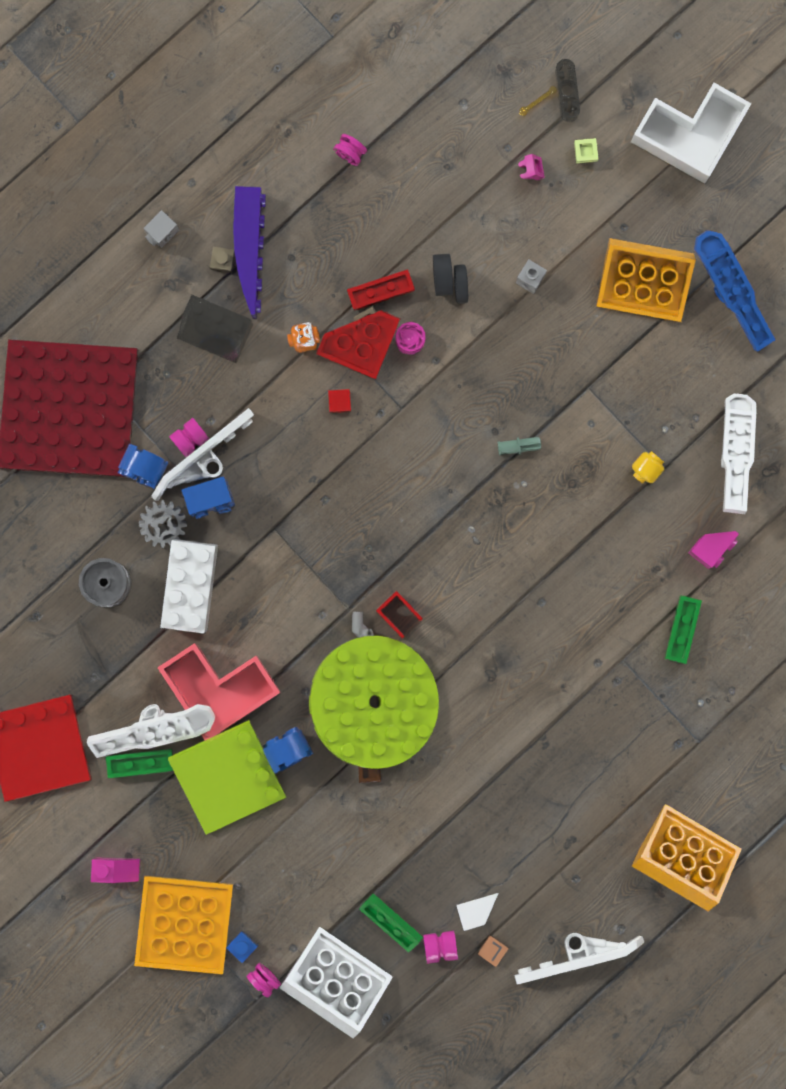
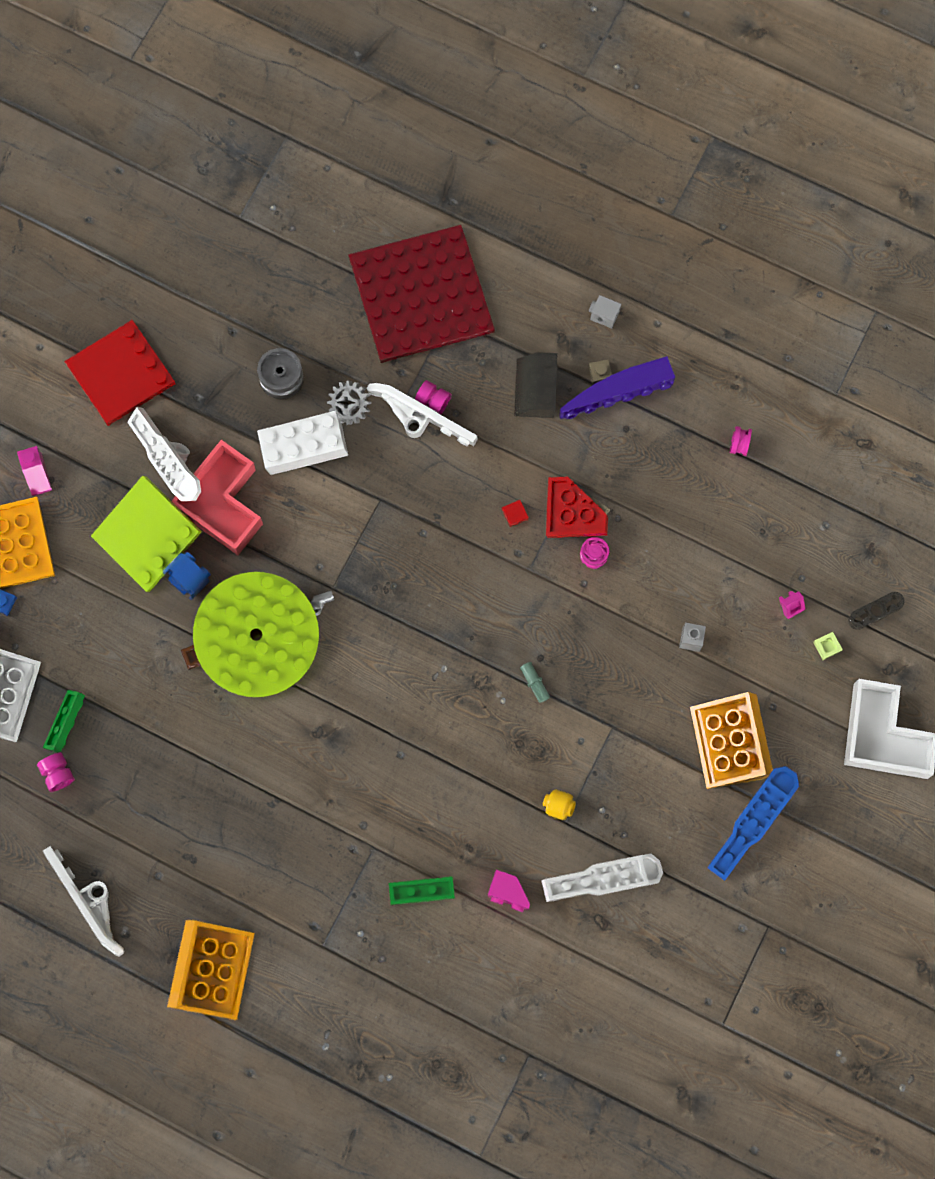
camera: 70 degrees right, 10 degrees down
(138, 763) = (133, 456): green plate -> none
(142, 465) = (393, 367): blue brick -> none
(208, 496) = (389, 433): blue brick -> none
(303, 337) = (558, 461): orange head -> none
(380, 290) = (627, 512): red plate -> none
(406, 604) = (333, 621): red piece -> none
(443, 274) = (661, 558): black tyre -> none
(461, 284) = (659, 577): black tyre -> none
(476, 911) = (98, 795): white sticker -> none
(493, 950) = (68, 822): nougat tile -> none
(524, 110) = (841, 579): clear yellow hinge -> none

